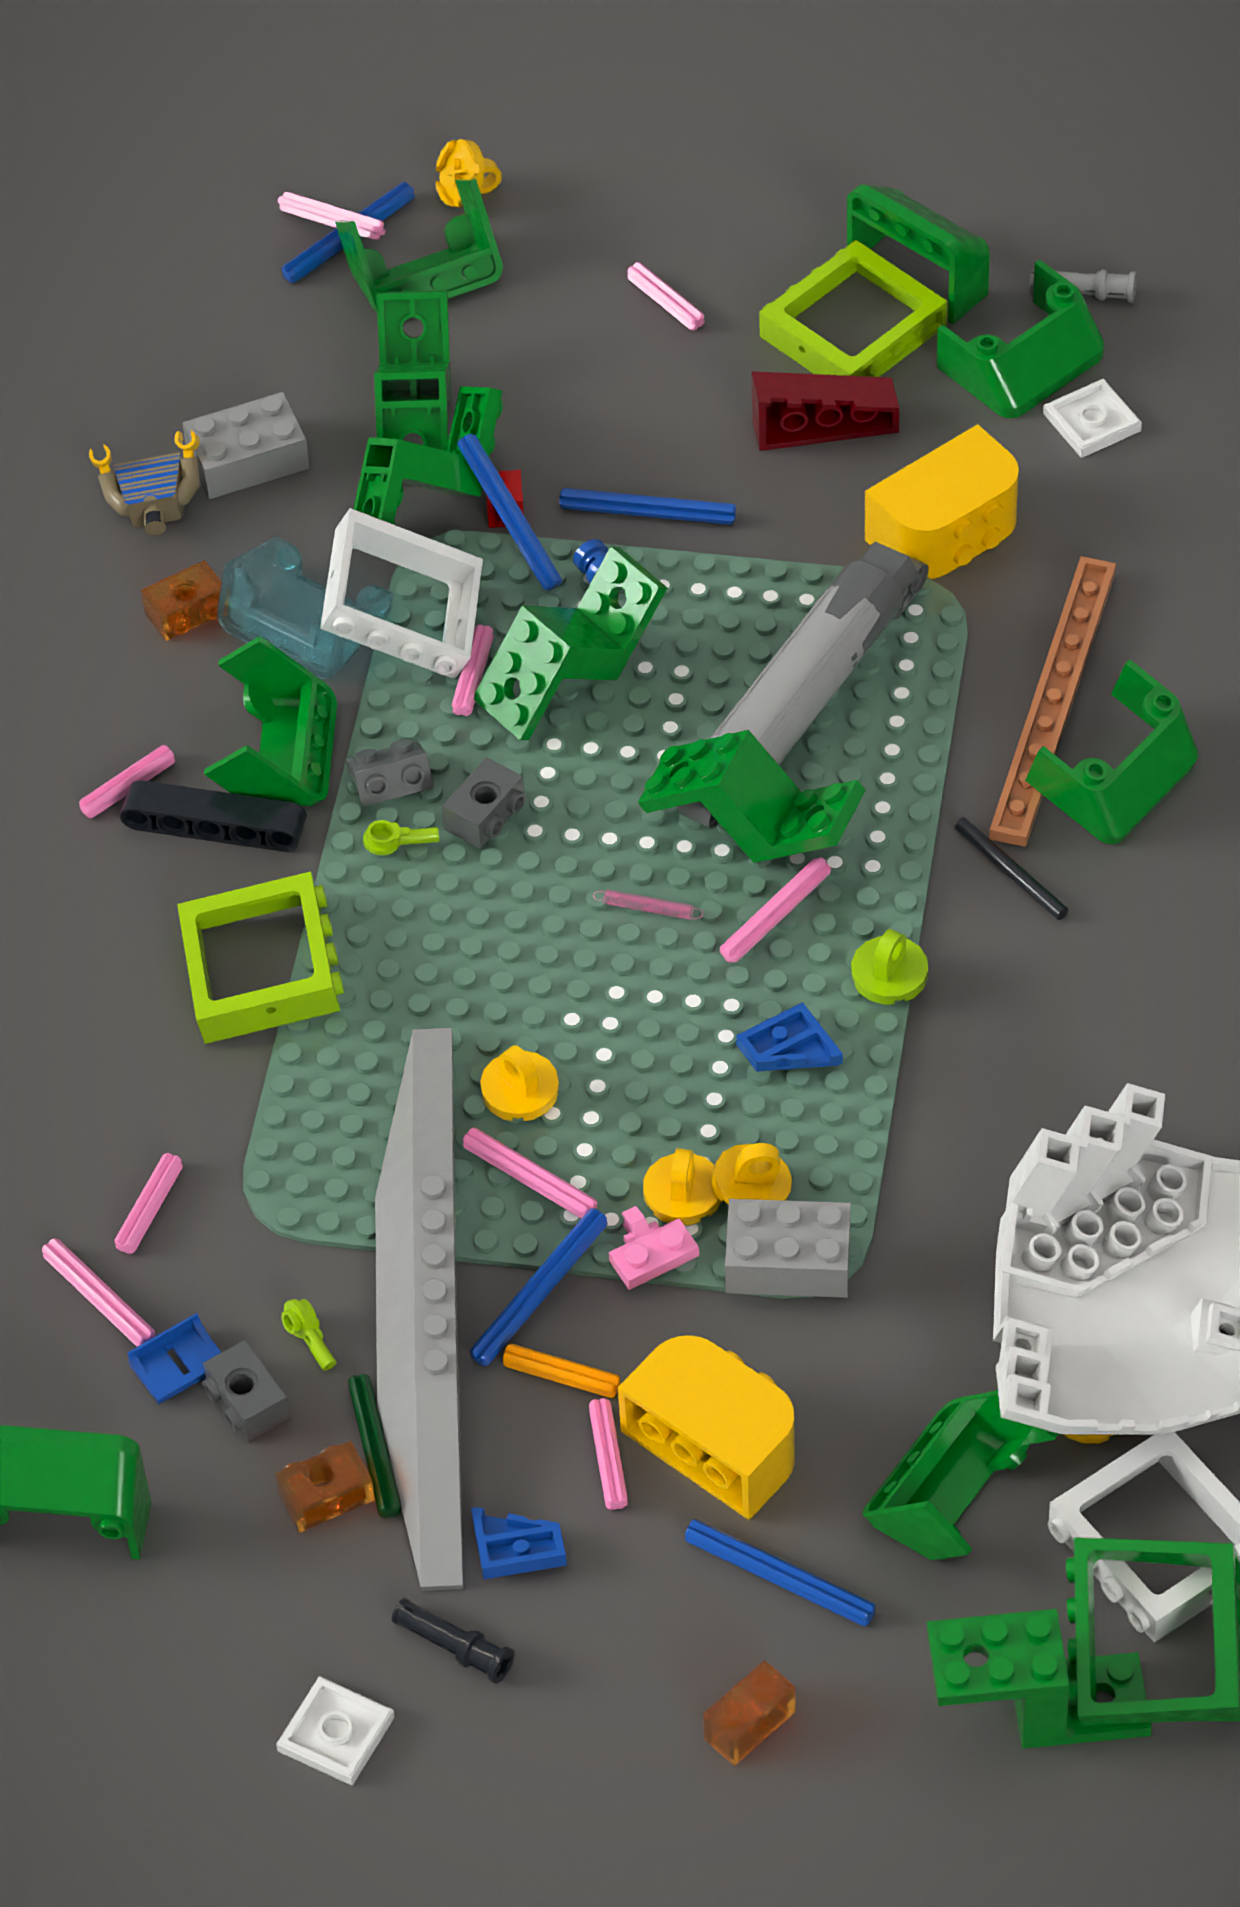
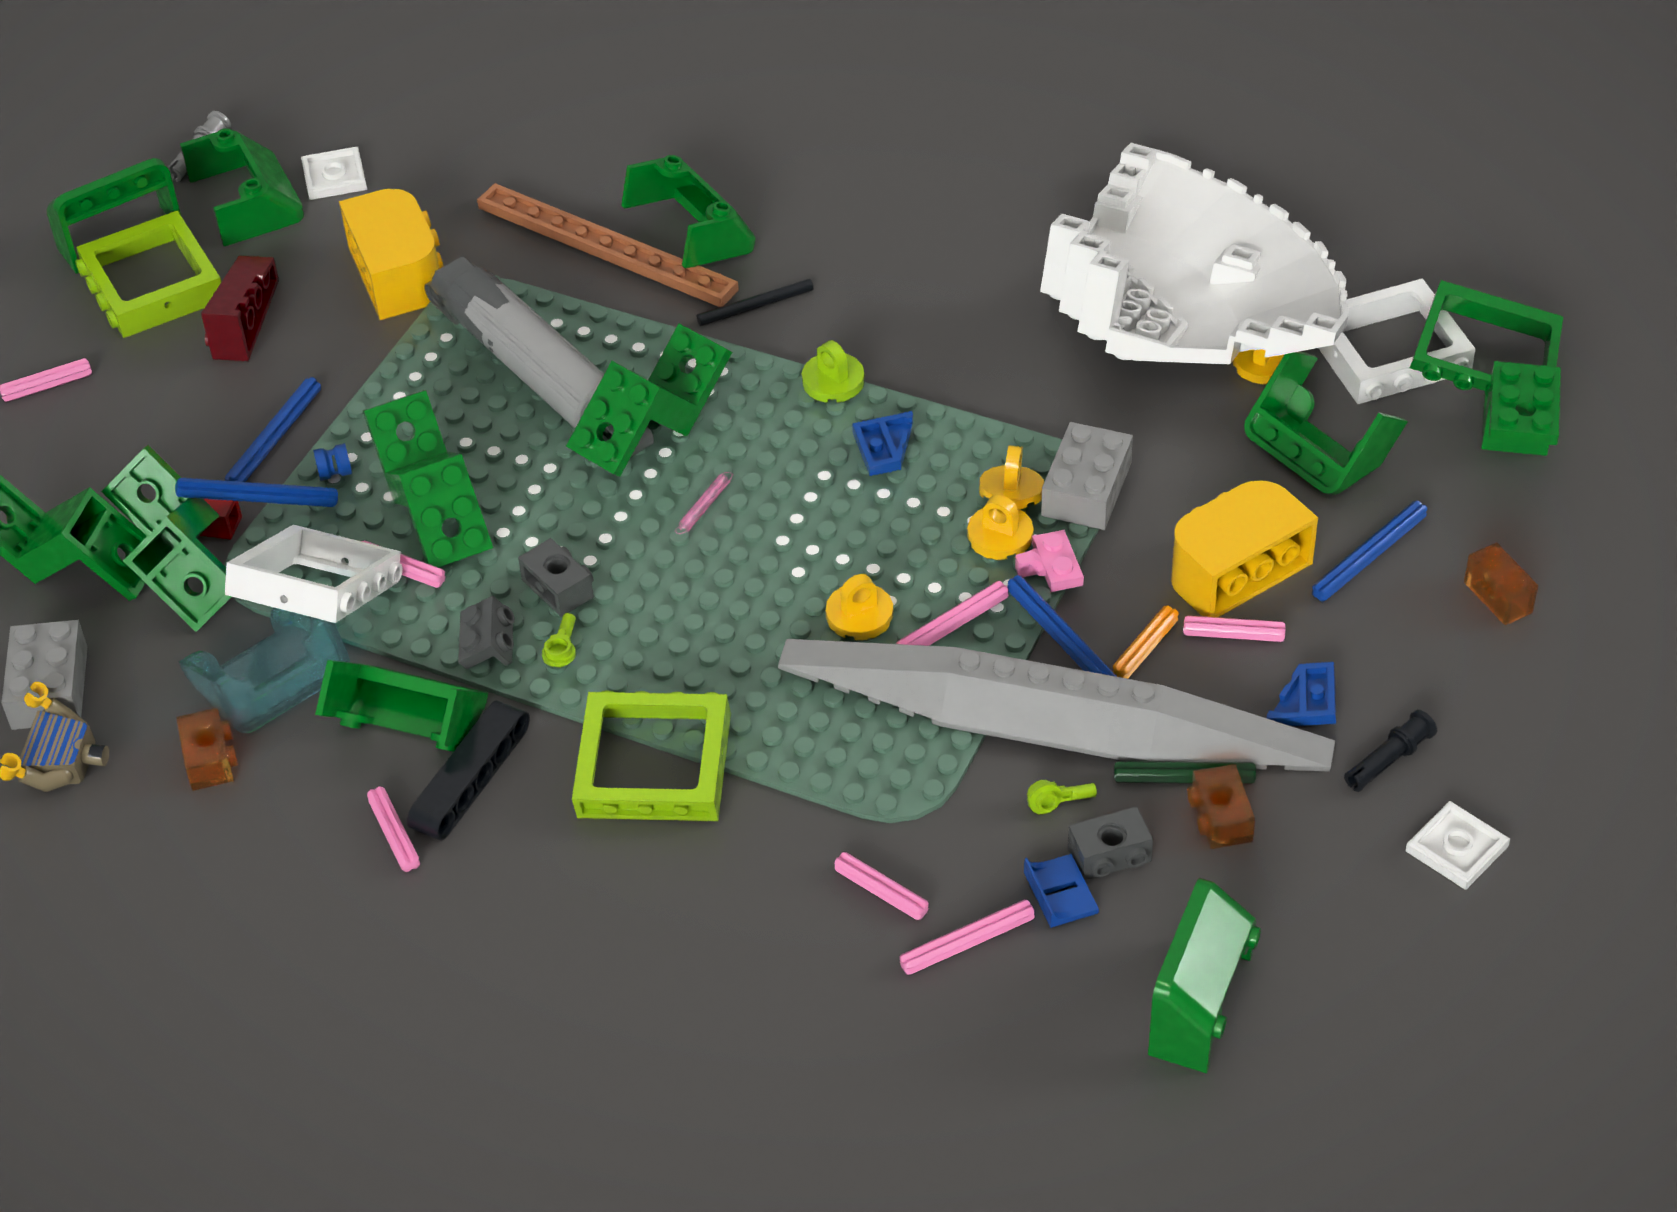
camera: 75 degrees left, 5 degrees down
(775, 910) = (747, 428): bright pink axle -> none

